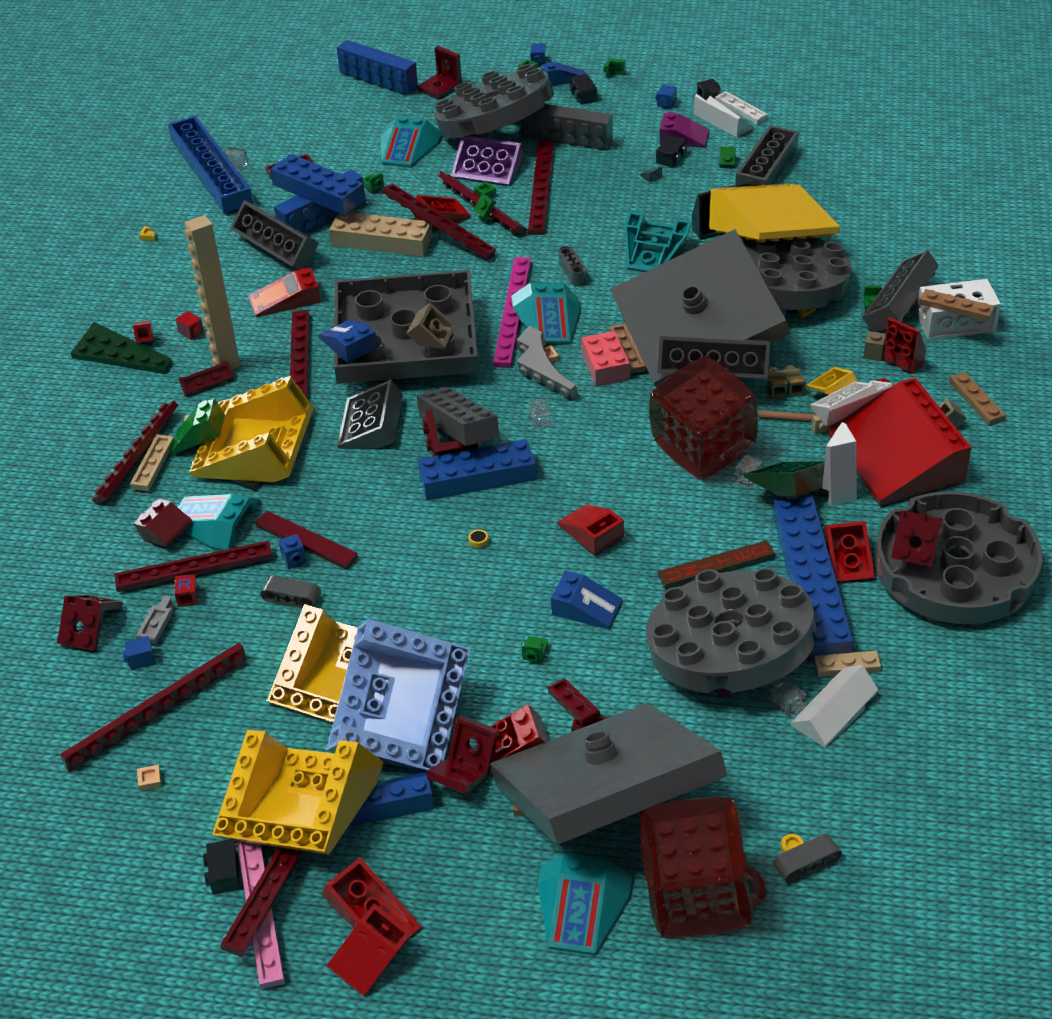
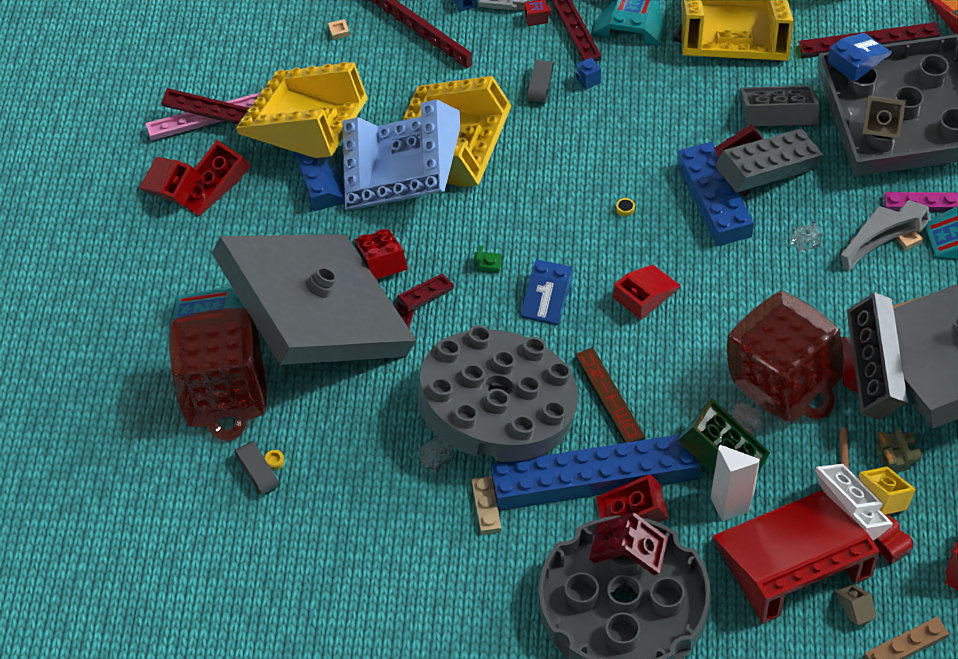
camera: 85 degrees right, 10 degrees up
(222, 866) = (249, 83): black brick -> none
(311, 541) = (610, 84): dark red tile -> none
(466, 766) = (349, 220): dark red bracket -> none
(605, 358) = (905, 280): coral brick -> none
(836, 705) = (428, 492): white slope -> none

